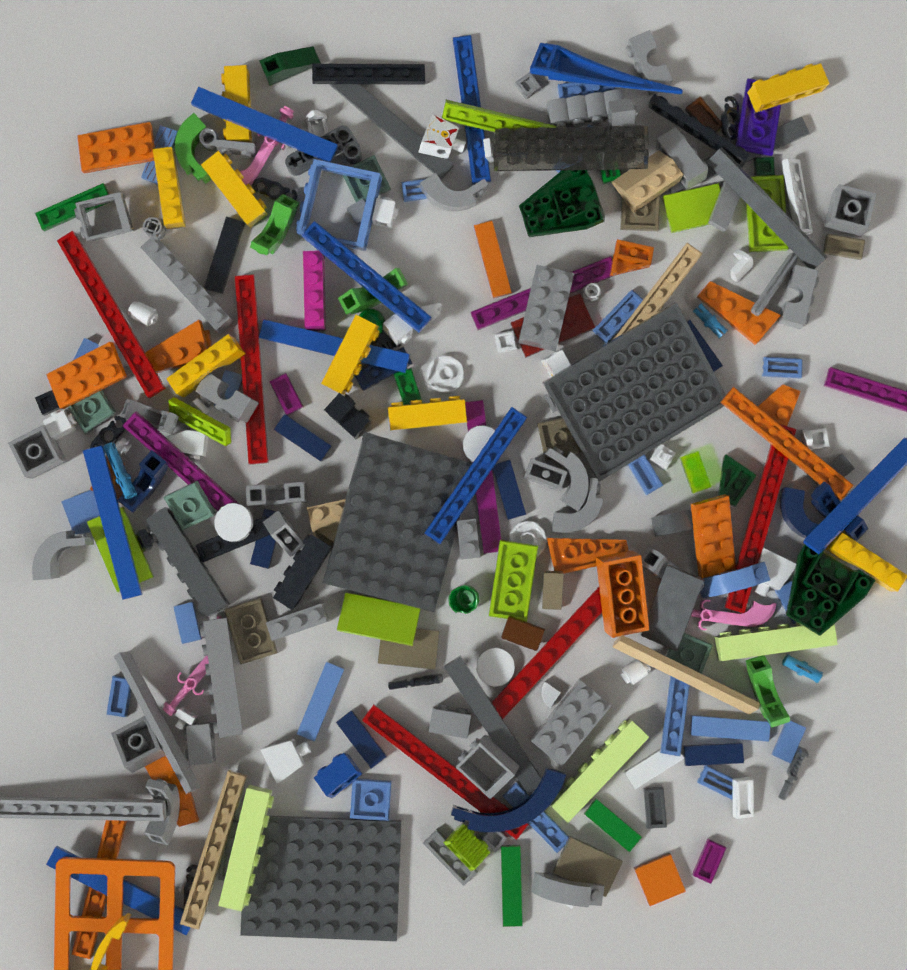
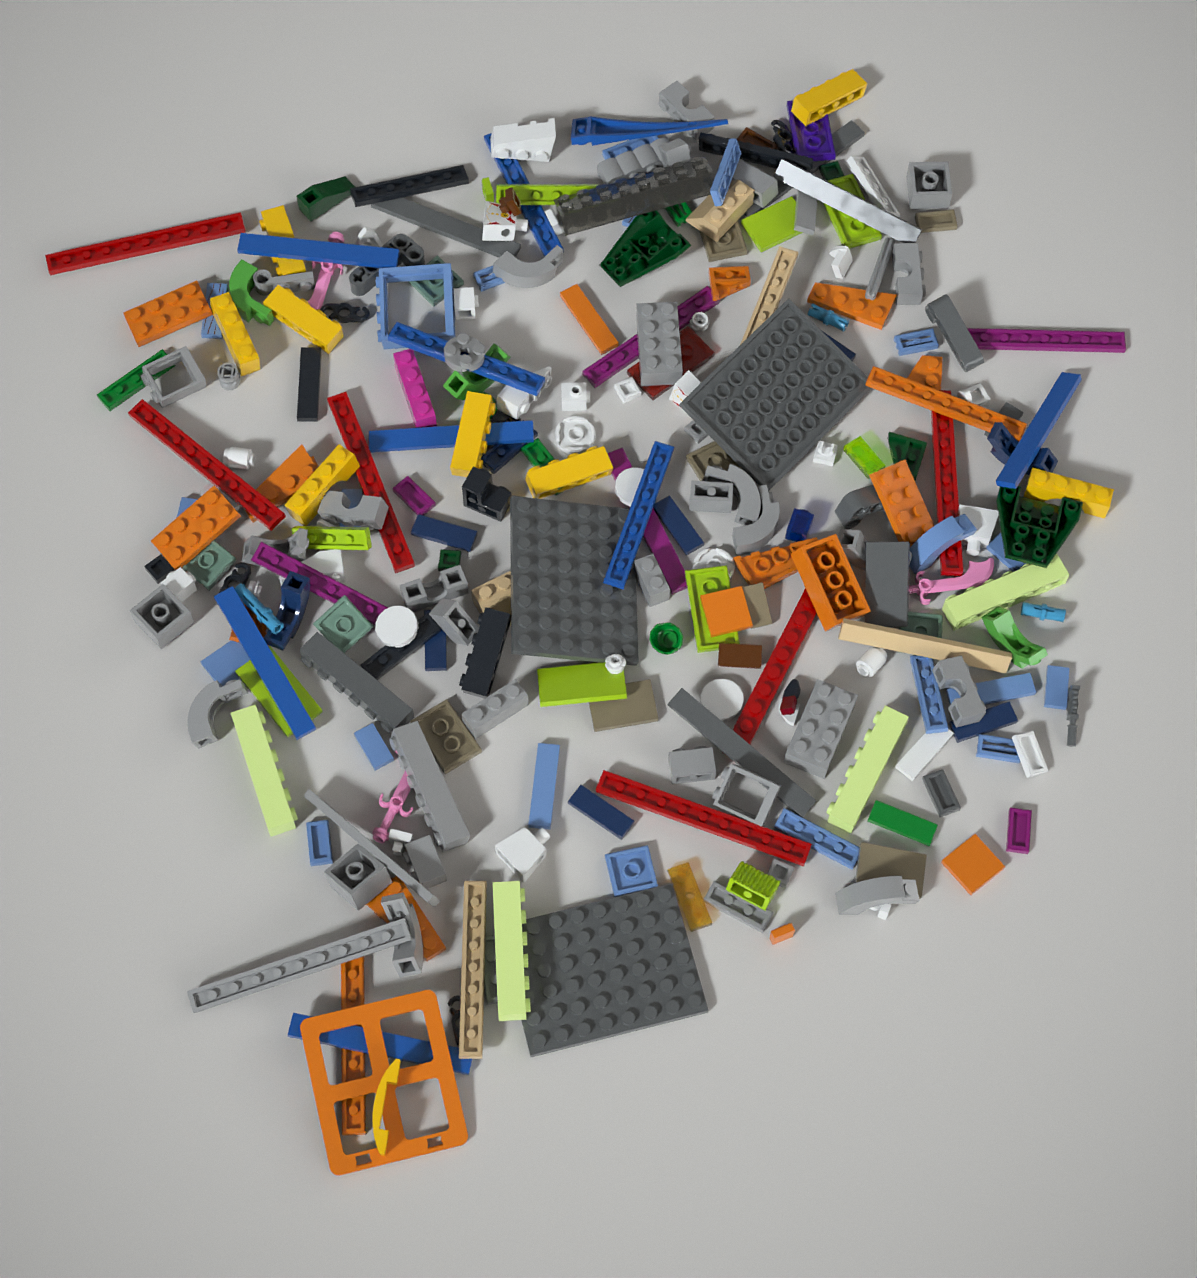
camera: 25 degrees left, 20 degrees down
(88, 619) = (263, 770): none -> yellowish green brick
(114, 68) = (145, 243): none -> red plate
(145, 540) = (303, 673): black plate -> none
(187, 284) = (279, 418): light grey brick -> none
(277, 226) = (358, 339): bright green arch -> none
(300, 466) = (449, 559): none -> dark green tile
(337, 775) = (587, 851): blue brick -> none
(356, 211) = (436, 310): light grey tile -> none
(362, 284) = (467, 344): none -> light grey plate
(412, 606) = (618, 666): none -> white plate
(412, 825) = (693, 908): none -> clear yellow tile
(417, 681) = (644, 736): black piece -> none
(439, 100) = (487, 190): none -> lime tile
(454, 124) = (510, 202): none -> reddish brown tile
(455, 337) = (574, 396): none -> white brick
(477, 895) = (782, 933): none -> orange tile
(484, 58) = (524, 142): none -> white wedge
(511, 885) = (815, 917): green tile -> none
(518, 815) = (792, 836): dark blue arch -> none
(523, 590) = (726, 611): none -> orange tile
(528, 85) = (572, 159): light grey tile -> none
(553, 686) = (790, 698): none -> piece
(615, 523) = (799, 525): none -> clear blue brick
(617, 317) = (733, 336): medium blue tile -> none
(645, 475) = (813, 474): medium blue tile -> none
(661, 149) = (725, 172): none -> medium blue tile
(704, 743) = (955, 674): none -> light grey arch
(793, 512) = (978, 468): dark blue arch -> none
(820, 372) = (955, 332): none -> dark grey beam

